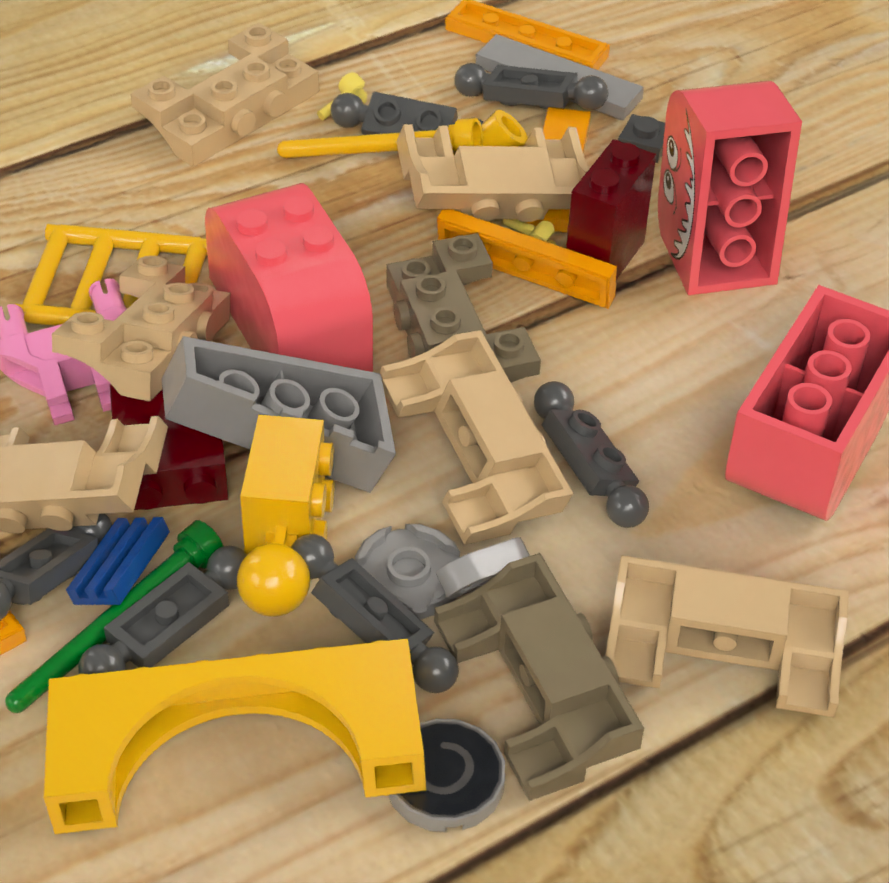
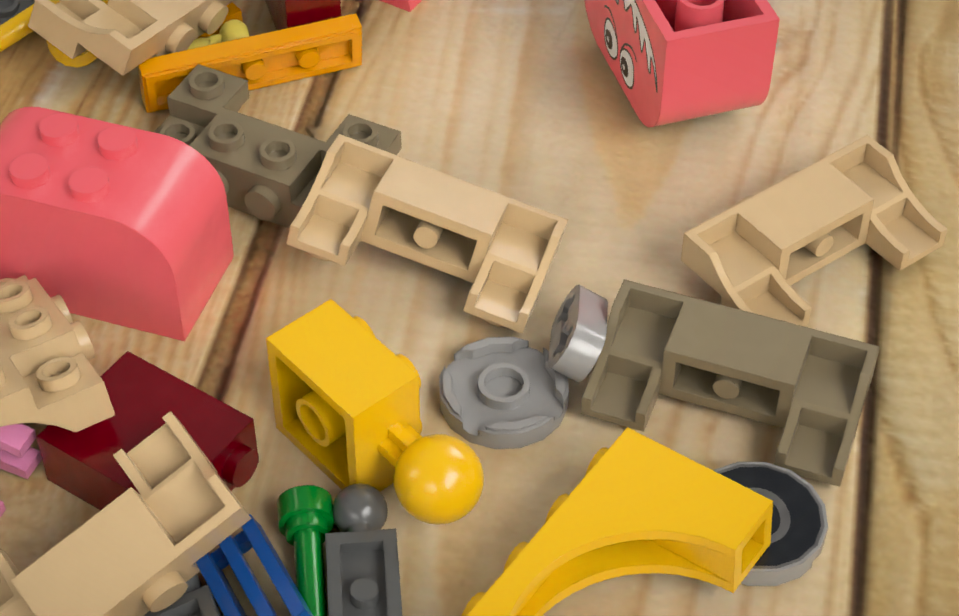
camera: 45 degrees left, 0 degrees up
(228, 386) = (213, 332): light grey wedge -> none
(375, 612) = (527, 441): dark grey plate -> none
(591, 454) = (541, 185): dark grey plate -> none

